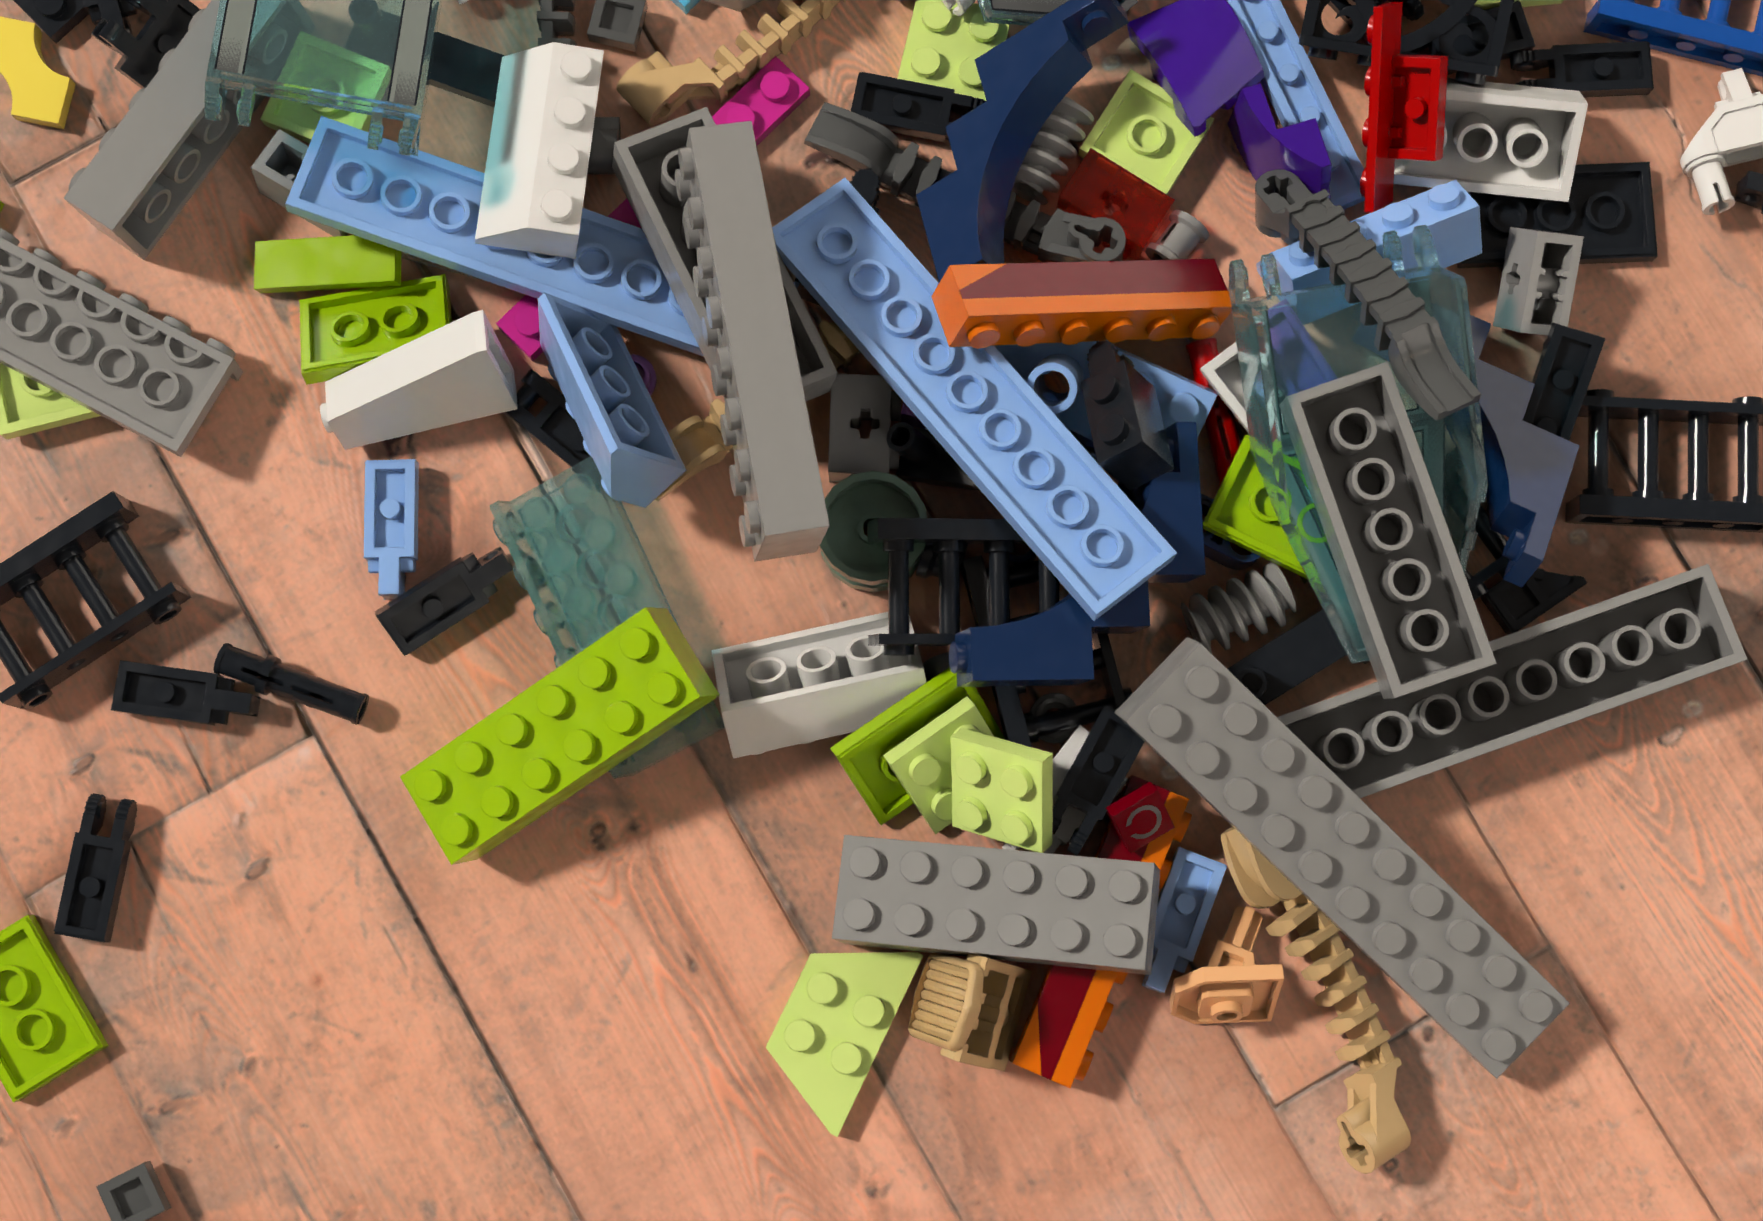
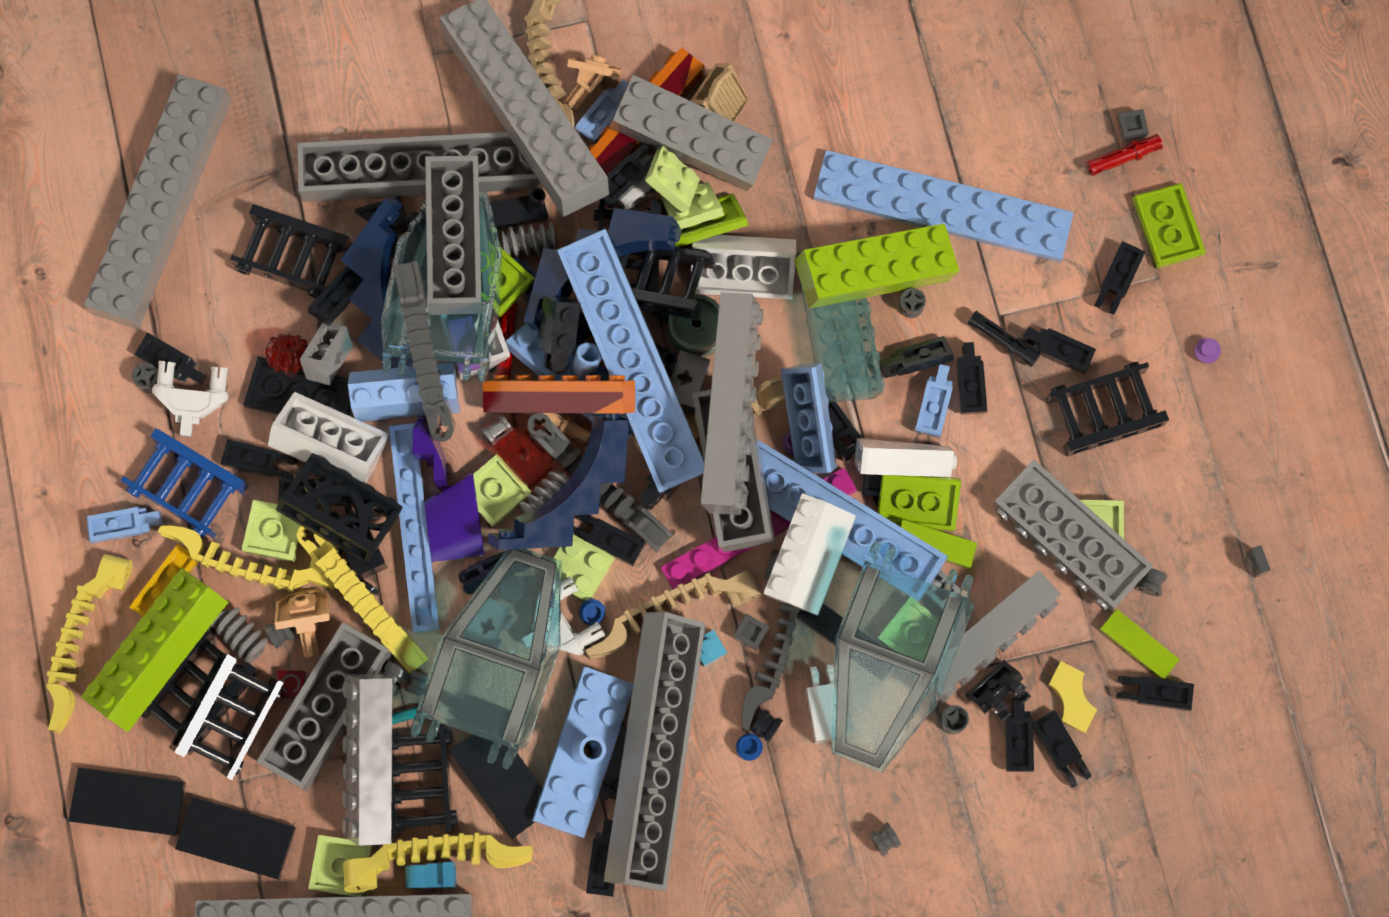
camera: 165 degrees left, 5 degrees down
(119, 1141) = (1134, 151): none -> red pin
(334, 583) = (971, 381): none -> black hinge
(470, 695) = (912, 297): none -> dark grey wheel
(470, 919) = (936, 201): none -> light blue plate
(838, 1025) = (782, 108): yellowish green wing -> none
(1140, 817) = (610, 151): dark red tile -> none
(1404, 106) = (365, 448): red bracket -> none
(1611, 266) = (285, 353): none -> clear red gear

